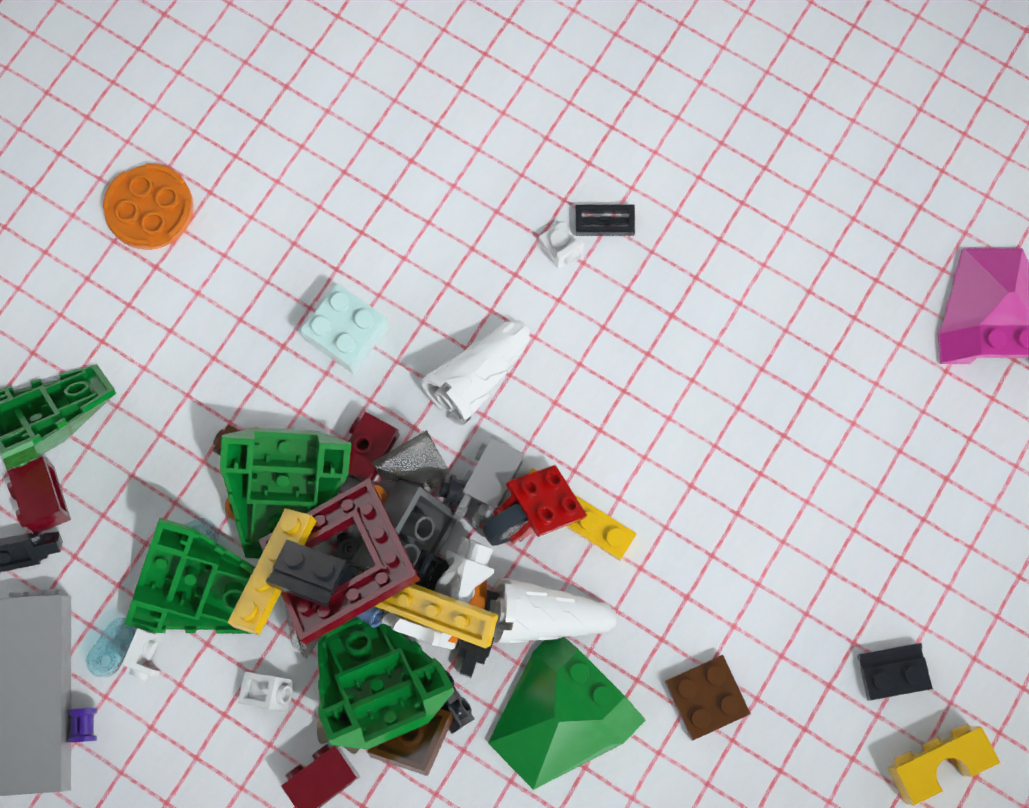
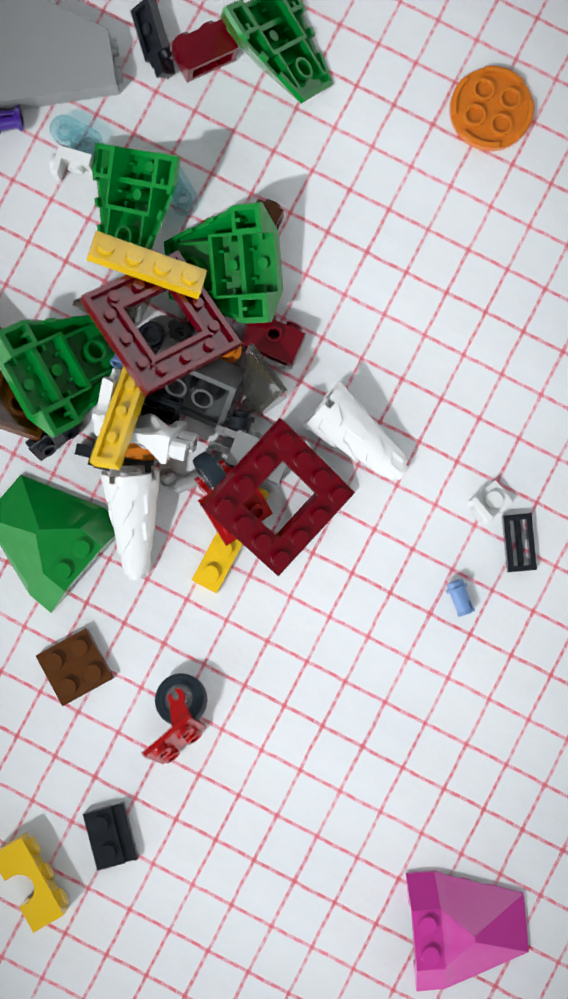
camera: 85 degrees right, 10 degrees up
(265, 691) = (48, 274): white bracket -> none
(307, 573) = (143, 294): black plate -> none
(345, 328) = (385, 306): light aqua brick -> none
(513, 565) = (176, 482): none -> light grey arm
(542, 505) = (227, 498): none -> dark red plate
(657, 282) = (460, 597): none -> medium blue pin
(753, 581) = (180, 702): none -> plate

